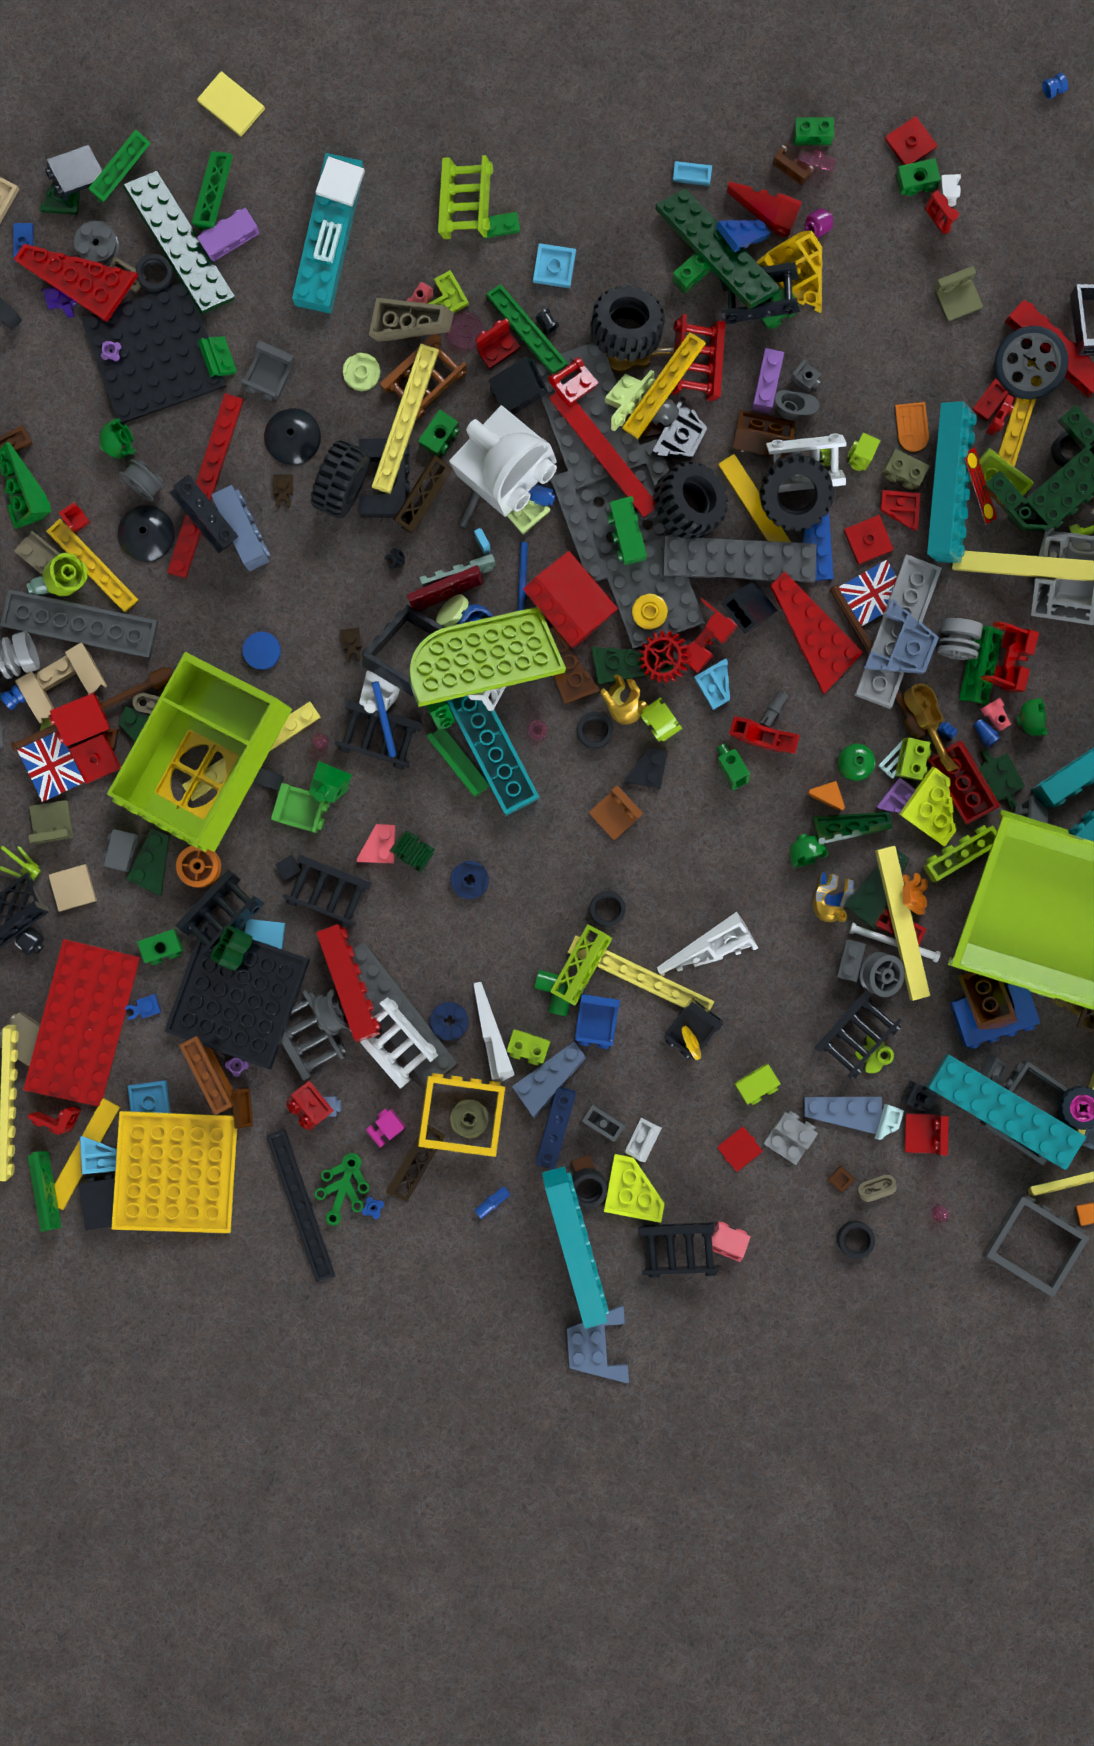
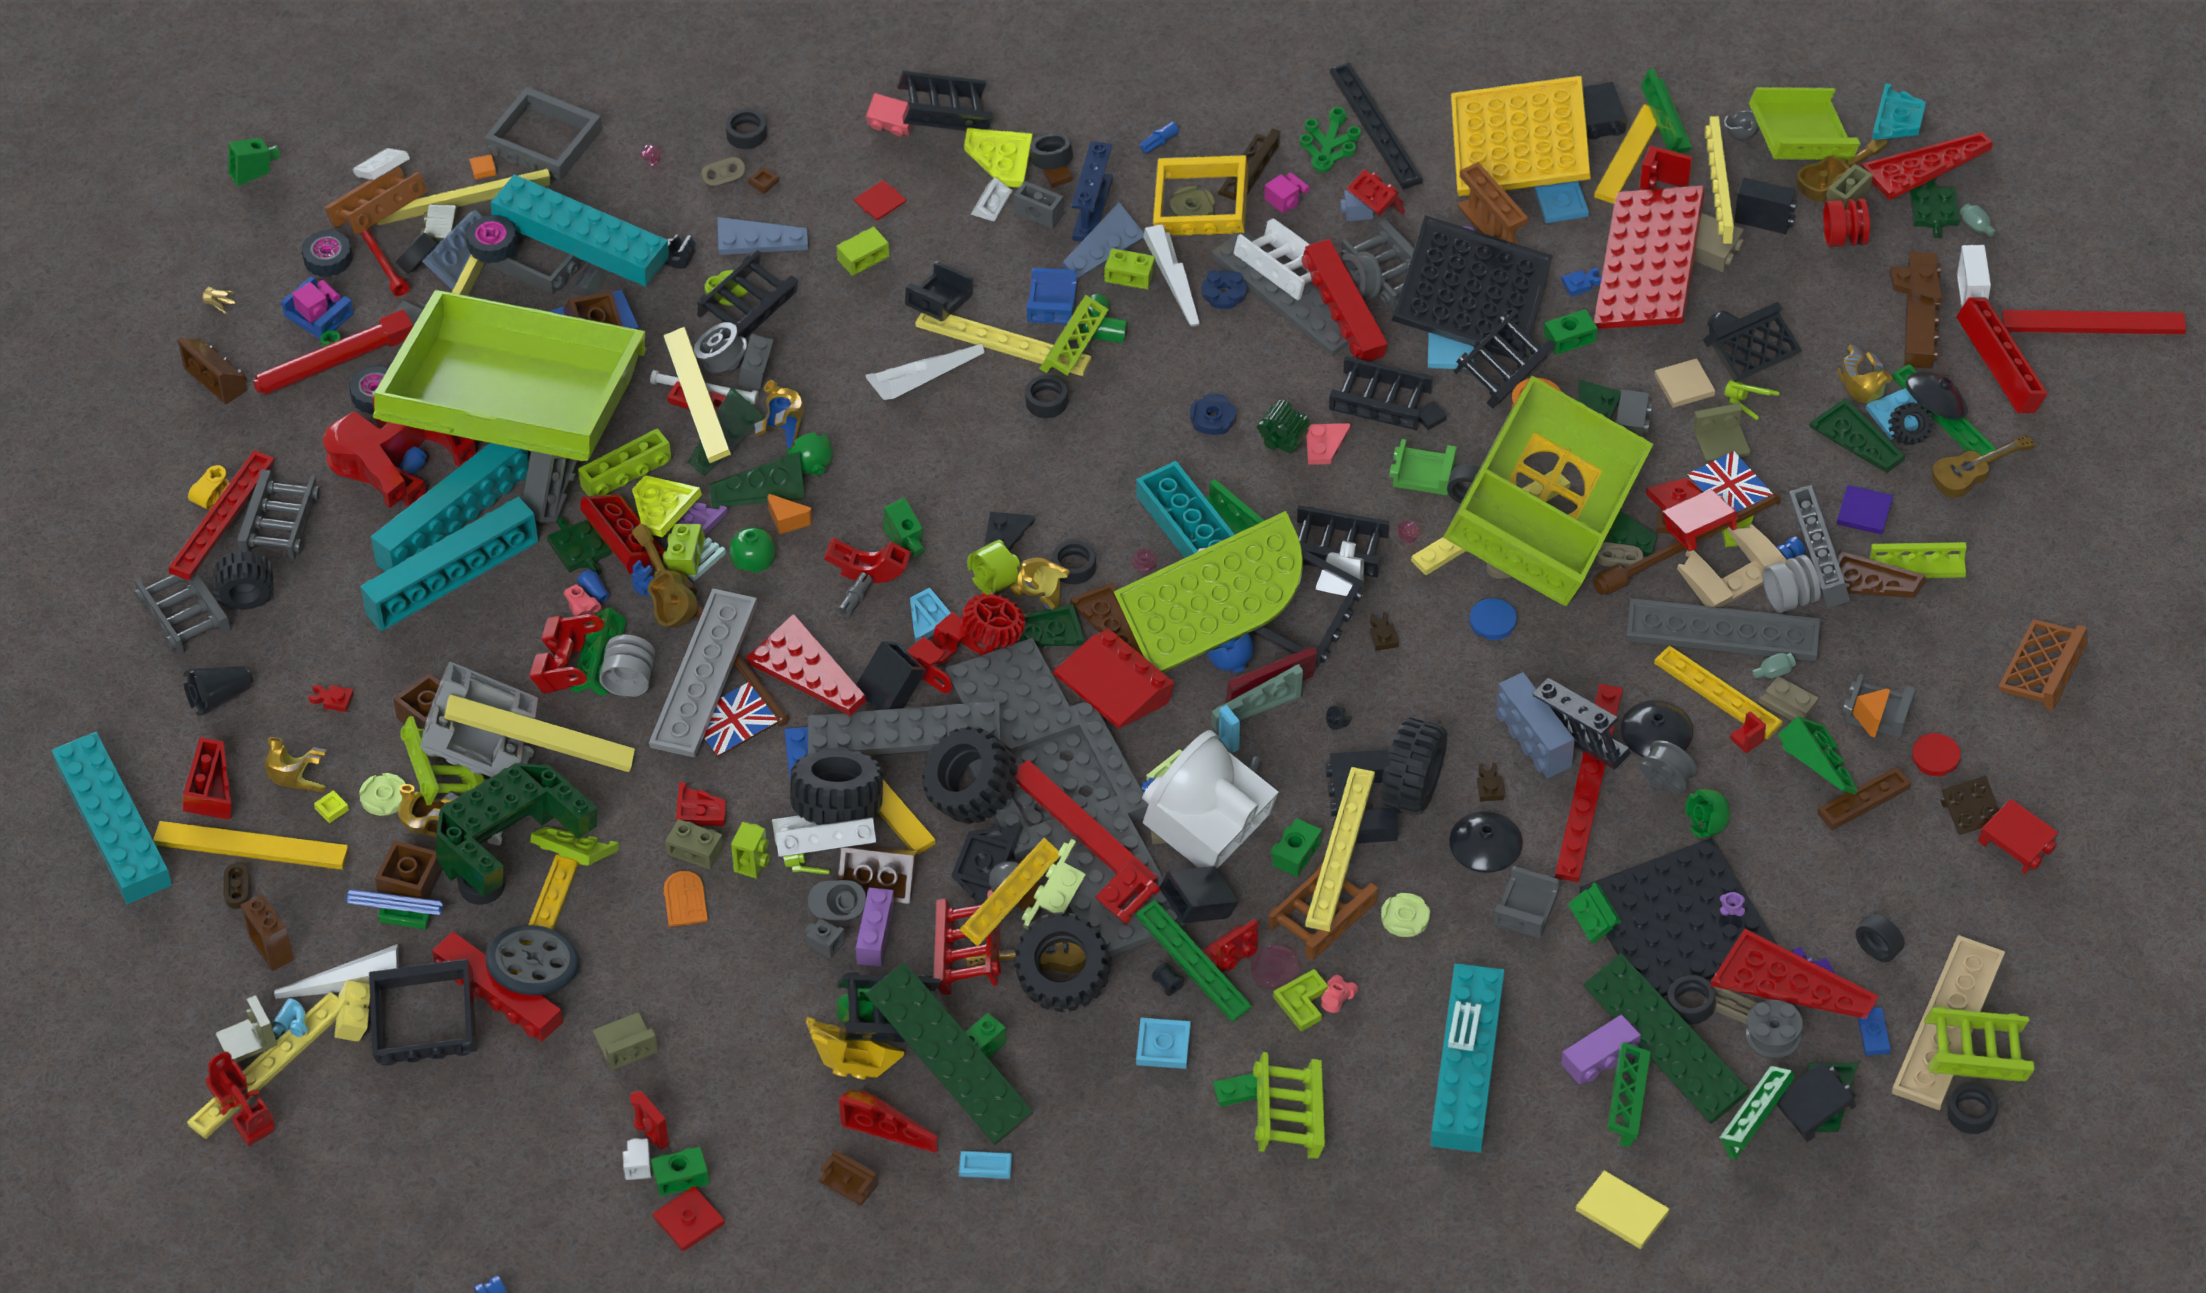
camera: 175 degrees right, 35 degrees down
(64, 574) = (1747, 665): lime brick -> none
(96, 1156) = (1610, 146): medium azure wing -> none
(231, 947) = (1483, 316): dark green brick -> none
(242, 1108) = (1453, 198): reddish brown tile -> none
(329, 783) = (1392, 483): green torso -> none
(340, 181) = (1456, 1094): white tile -> none
(372, 1202) = (1293, 126): blue plate -> none
(383, 718) = (1331, 538): blue bar -> none
(408, 319) = (1347, 954): dark tan wedge -> none
(426, 496) = (1307, 776): dark brown fence -> none
(451, 611) = (1258, 653): yellowish green tile -> none
(522, 575) = (1176, 710): blue bar -> none
(576, 1246) = (1062, 83): teal brick -> none
(588, 1348) = (1041, 29): sand blue wing -> none
(616, 813) = (1041, 485): dark orange bracket -> none
(626, 531) = (1048, 738): green wedge -> none
(649, 611) = (1014, 666): yellow wheel -> none
(691, 1042) = (941, 271): yellow wheel -> none
(742, 233) = (915, 1072): blue wing -> none
(790, 1137) = (821, 211): light grey plate -> none
(813, 131) = (822, 1214): green brick -> none
(817, 158) = (816, 1185): clear pink plate -> none
(819, 222) = (812, 1110): magenta head -> none
(868, 539) = (740, 774): red plate -> none
(889, 1121) = (709, 229): light aqua tile -> none
(912, 647) = (689, 643): sand blue wing -> none
(913, 895) = (683, 418): orange plate -> none
(926, 1133) = (666, 219): red bracket -> none
(951, 483) = (637, 822): teal brick -> none
(978, 482) = (606, 833): sticker -> none
(990, 400) = (585, 926): red plate -> none
(1004, 409) = (573, 903): red wing -> none
(1033, 717) = (536, 598): green cylinder -> none

